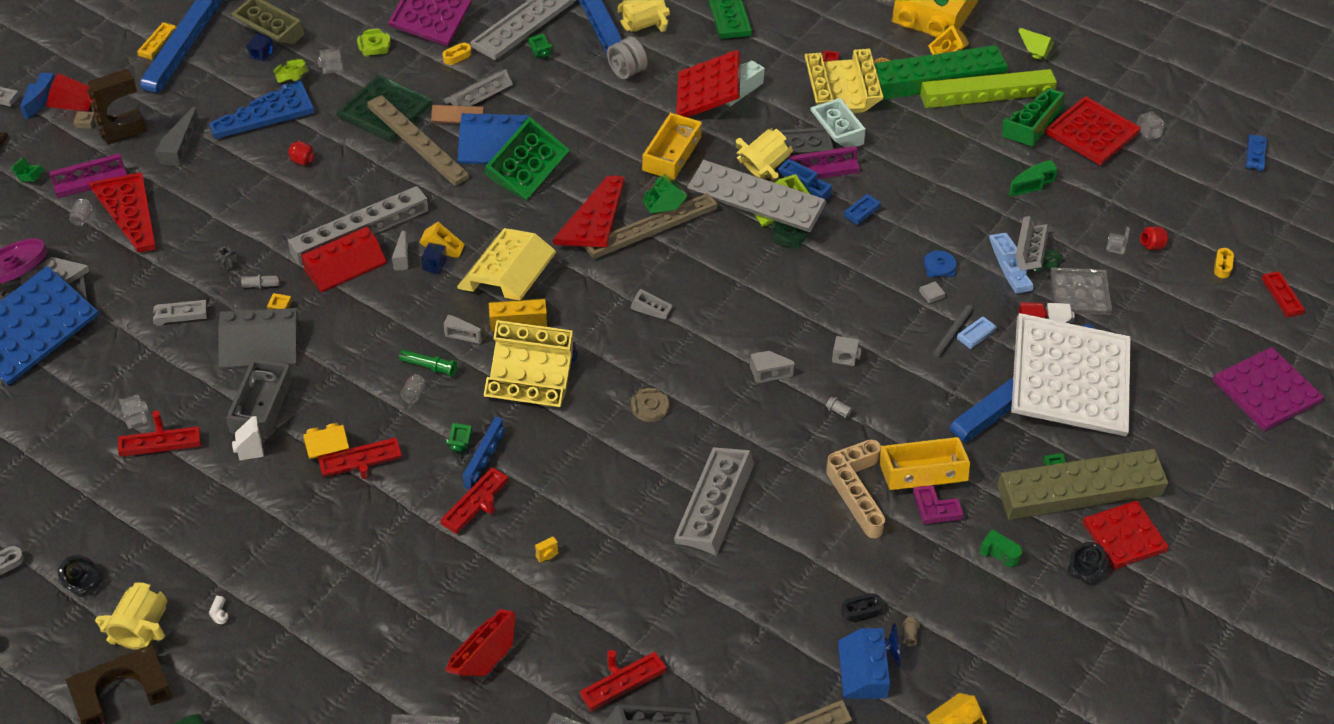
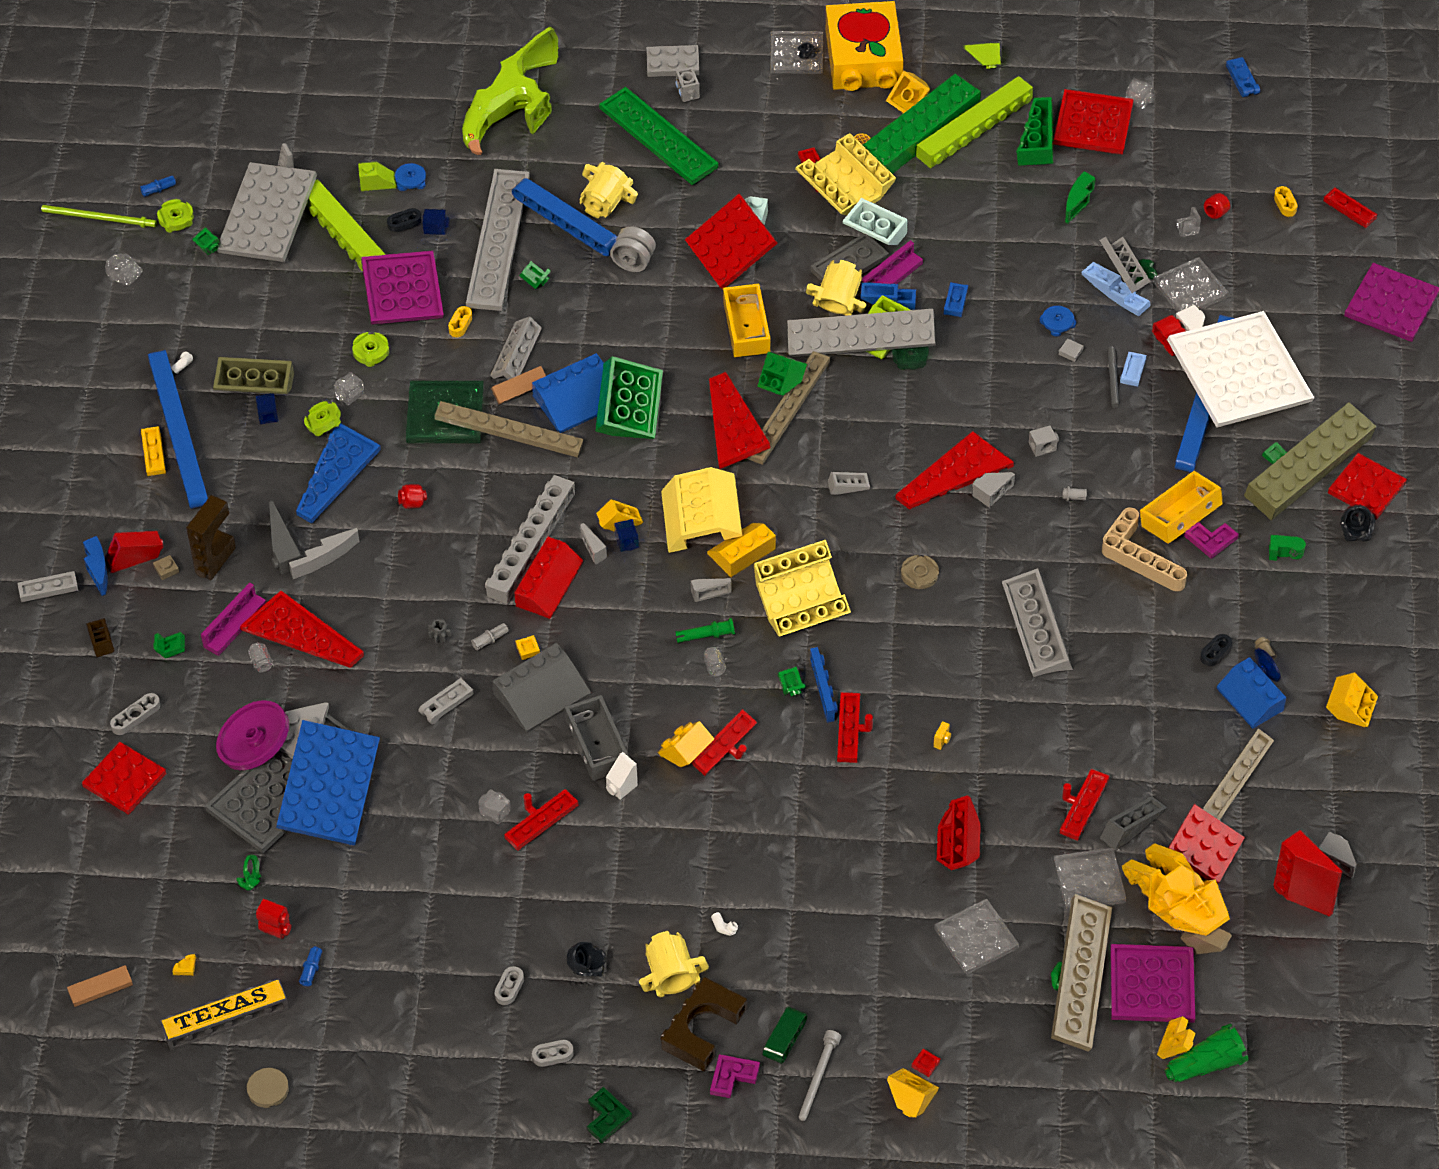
camera: 30 degrees left, 5 degrees up
(205, 162) = (330, 550): none -> light grey slope
(747, 338) = (954, 470): none -> red wing

